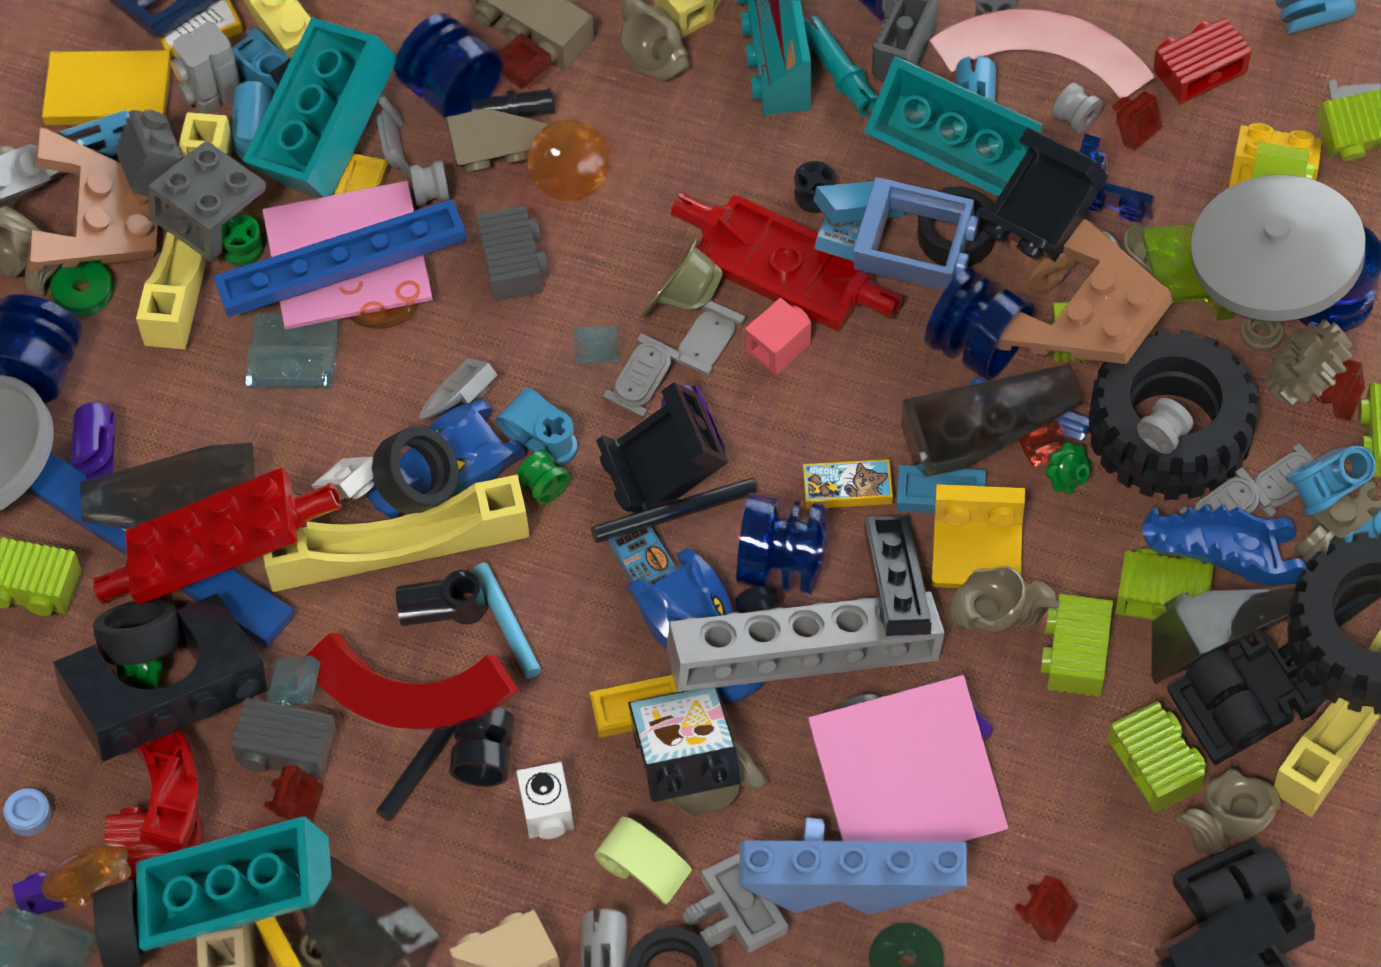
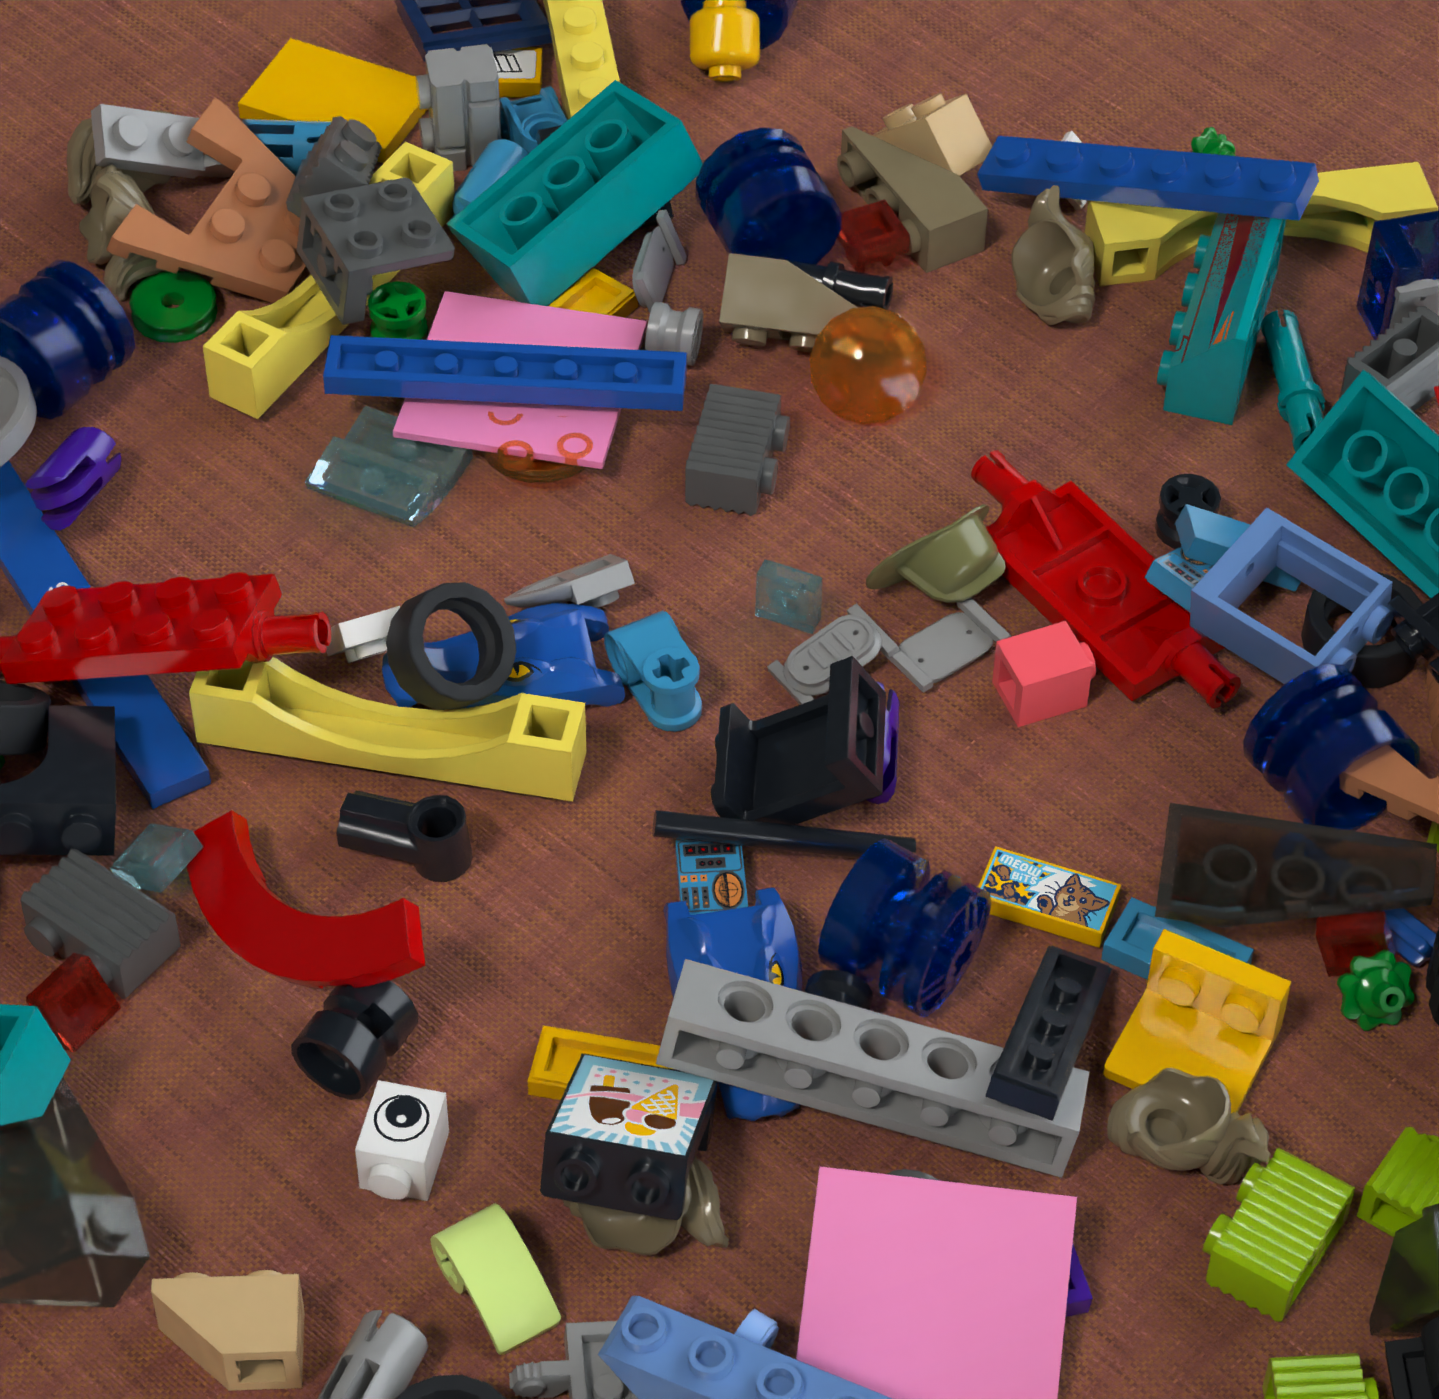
camera: 20 degrees right, 10 degrees down
(164, 485) = (112, 551): clear smoke wedge -> none
(414, 772) = (249, 1037): black bar -> none
(507, 621) = (483, 895): medium azure bar -> none
(543, 477) = (627, 731): green wheel -> none

